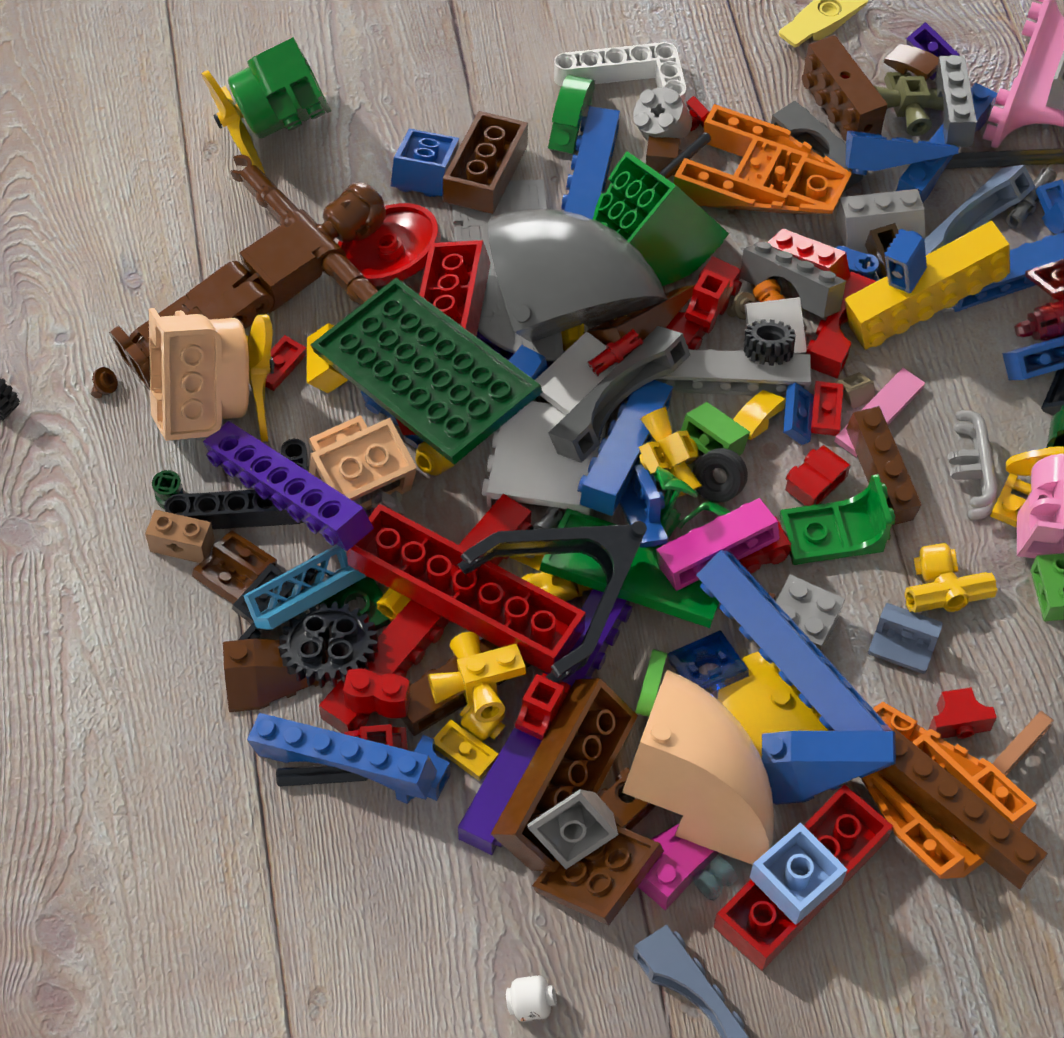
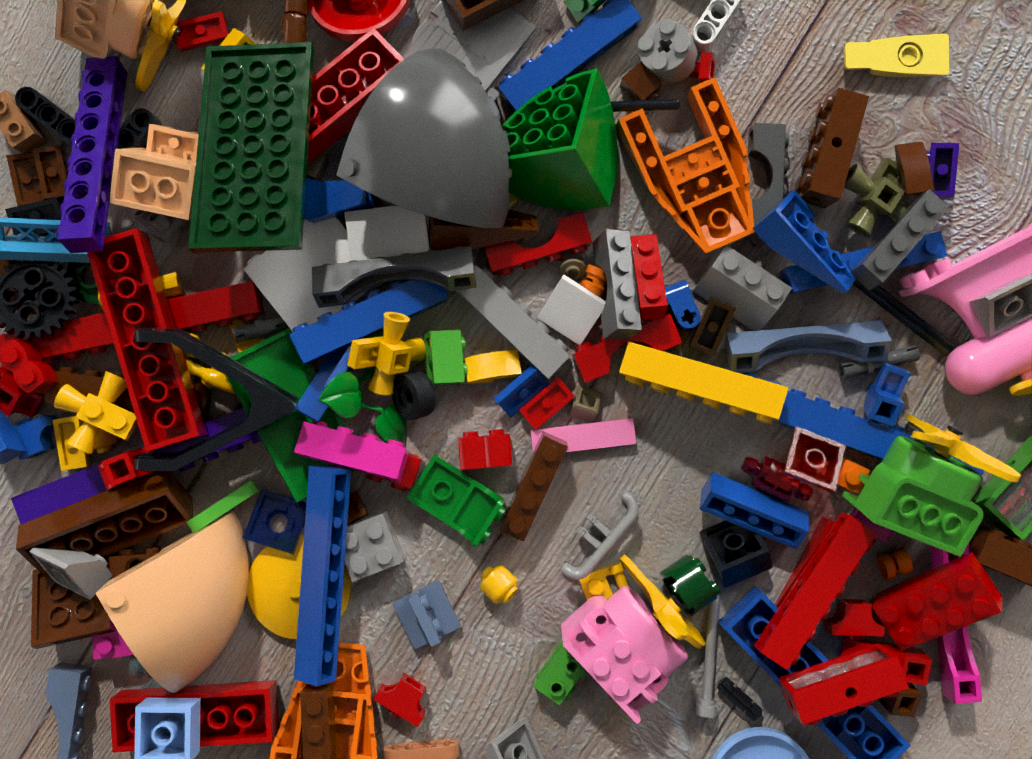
camera: 45 degrees right, 30 degrees up
(165, 485) = (44, 80): dark green wheel -> none
(615, 352) = (418, 242): red pin -> none
(708, 298) = (536, 251): red brick -> none
(769, 342) = (551, 311): black tyre -> none
(816, 761) = (269, 663): blue wedge -> none
(905, 260) = (685, 365): blue brick -> none
(950, 592) = (485, 613): yellow piece -> none

